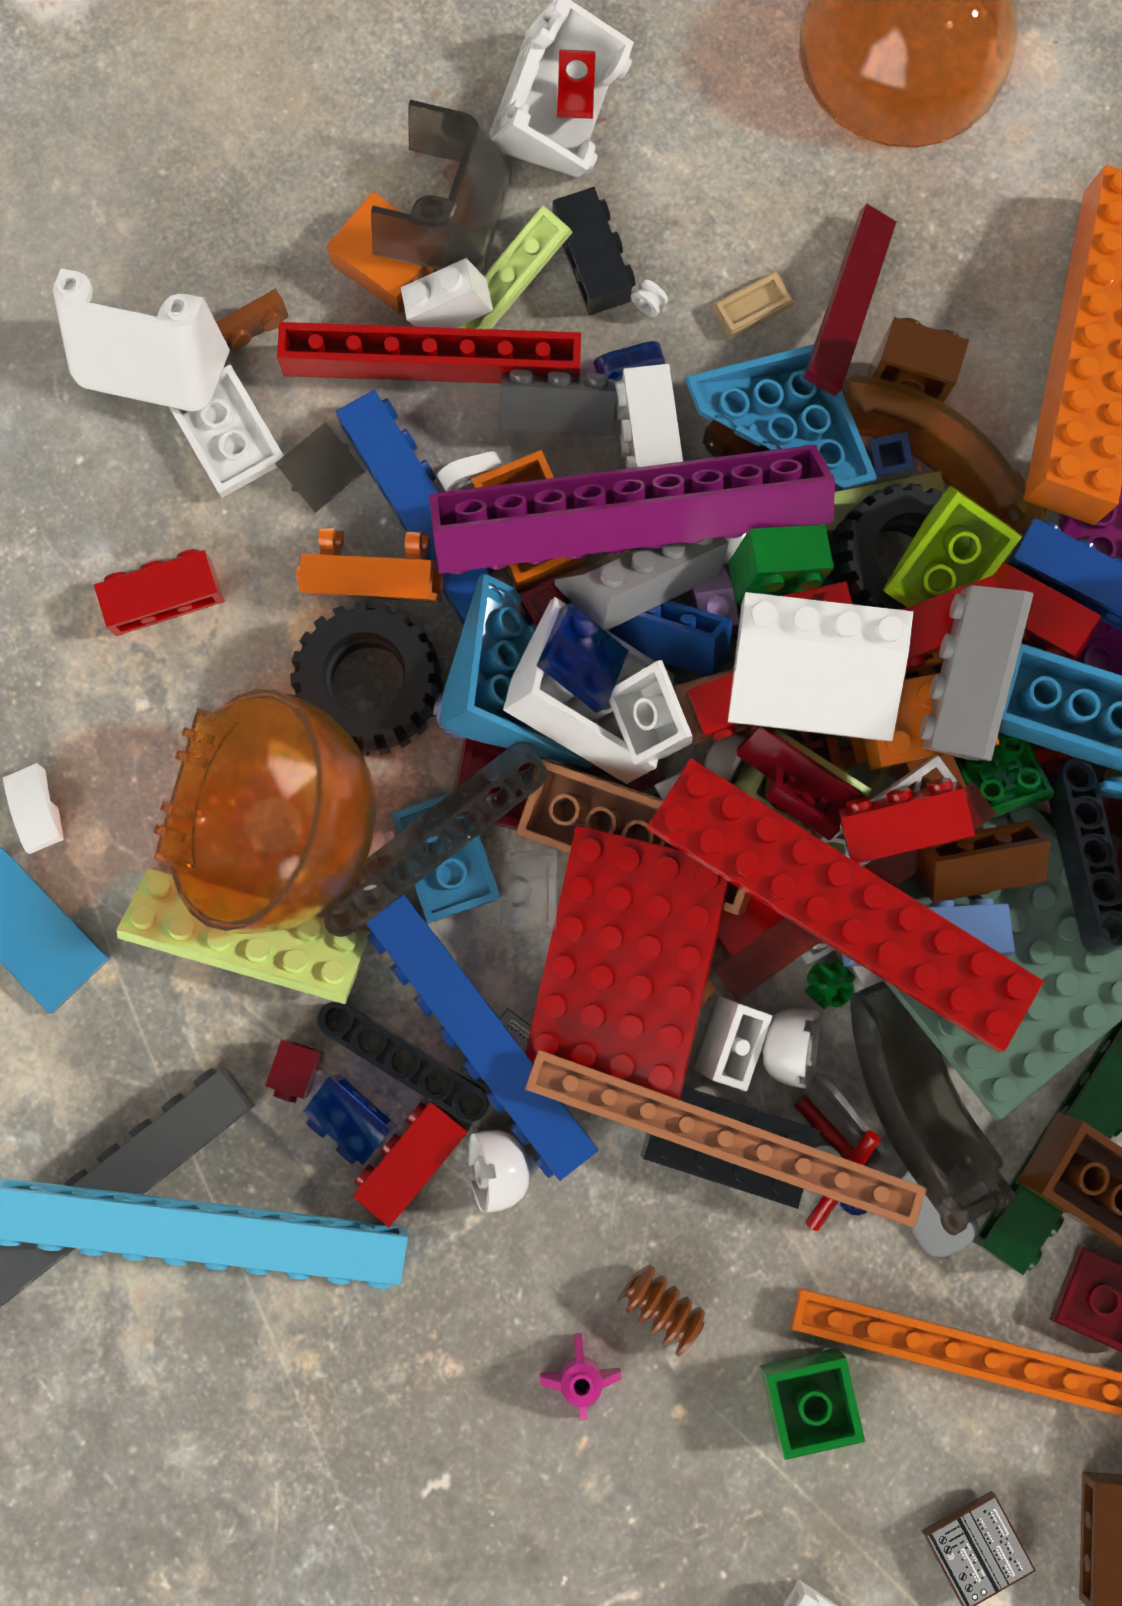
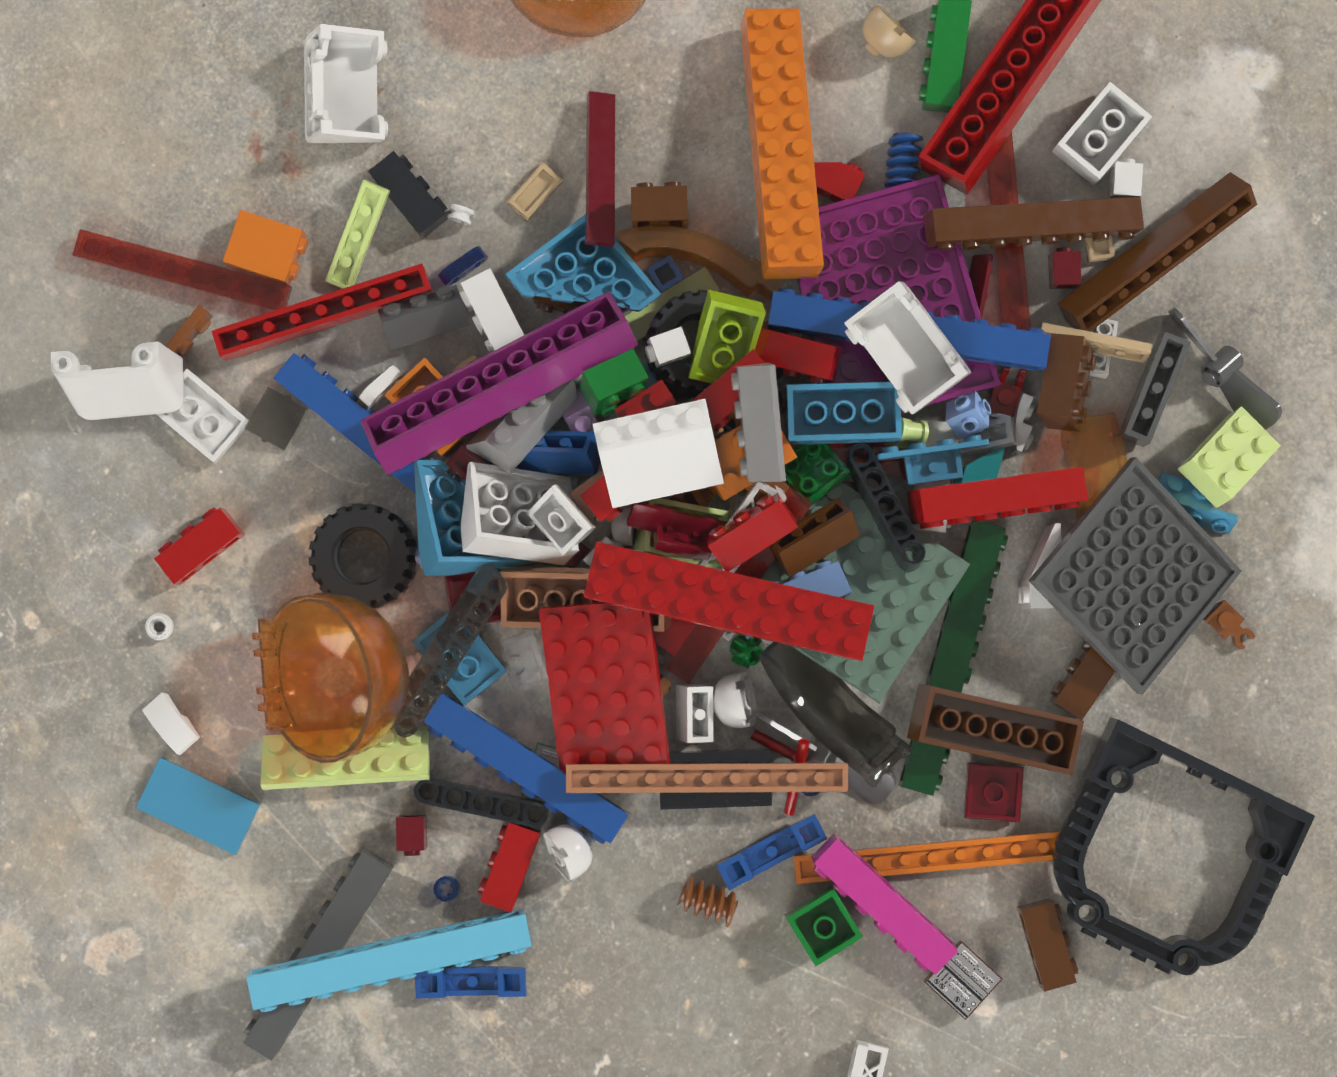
camera: 15 degrees left, 5 degrees up
(58, 673) = (150, 626): none -> white plate
(268, 243) = (181, 270): none -> clear red plate
(303, 1304) = (472, 981): none -> blue slope
(326, 1161) = (439, 892): none -> clear blue bush
(348, 1119) = (459, 852): clear blue slope -> none
(370, 576) = (338, 486): orange brick -> none
(447, 297) = (320, 270): white brick -> none
(452, 227) = (314, 219): clear smoke windscreen -> none
(576, 95) = (355, 82): red bracket -> none
(580, 1368) = (667, 956): dark pink brick -> none
(583, 658) = (503, 497): clear blue plate -> none
(773, 1270) = (771, 851): none -> blue slope
(871, 540) = (667, 347): none -> white brick
(907, 1403) = (884, 903): none -> dark pink brick

